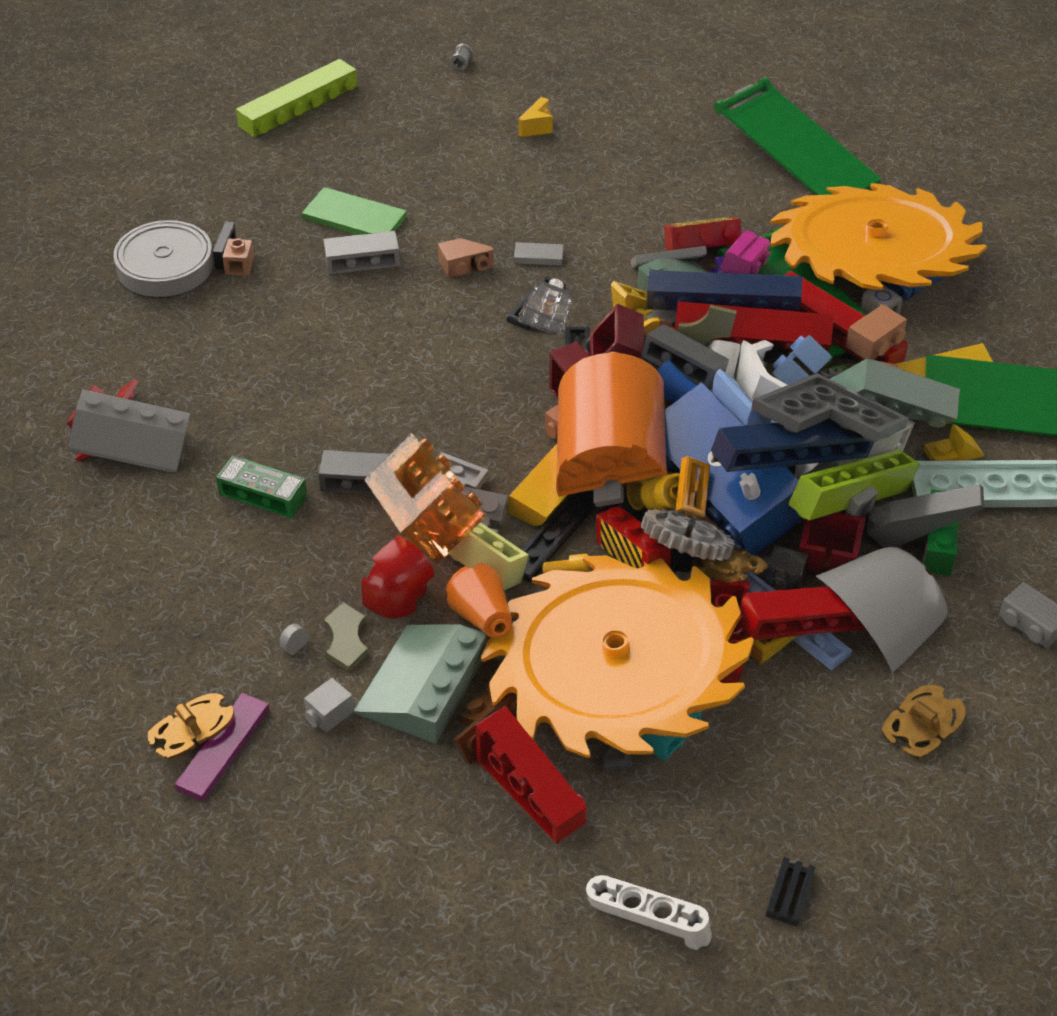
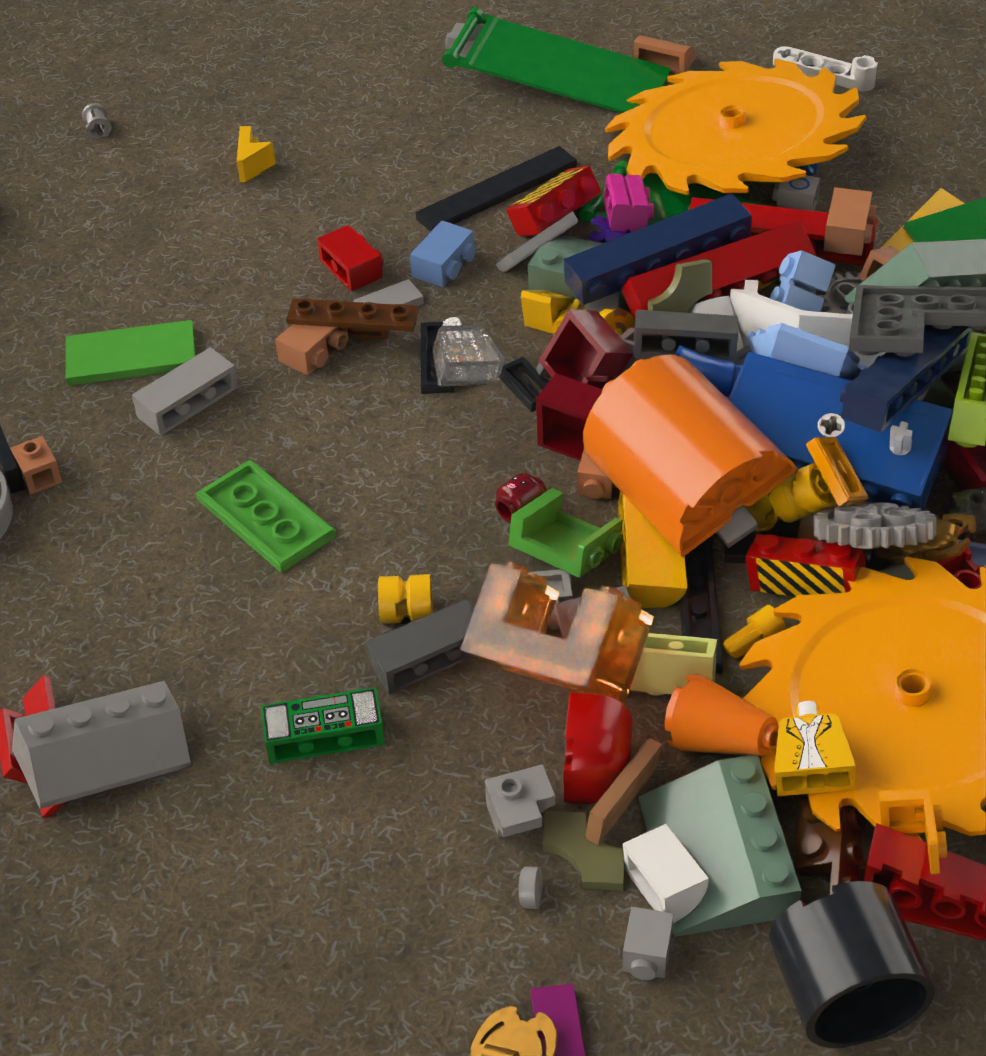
camera: 30 degrees left, 0 degrees up
(326, 585) = (518, 800): none -> light grey brick
(344, 350) = (266, 515): none -> bright green tile
(371, 437) = (404, 598): none -> yellow wheel
(371, 671) = (665, 872): none -> white brick
(394, 614) = (622, 791): none -> medium nougat tile
(417, 777) = (851, 965): none -> black brick
(501, 414) = (517, 493): none -> dark red head
(501, 447) = (561, 538): none -> bright green panel
(503, 254) = (360, 318): none -> reddish brown bracket
(511, 647) = (813, 753): none -> yellow torso
(532, 717) = (914, 812): none -> light orange bracket
(537, 213) = (350, 257): none -> red brick
(598, 237) = (442, 254): none -> medium blue brick
(677, 210) = (497, 188): none -> black tile
(884, 166) = (664, 53): none -> nougat brick
(1014, 242) = (859, 74): none -> white beam

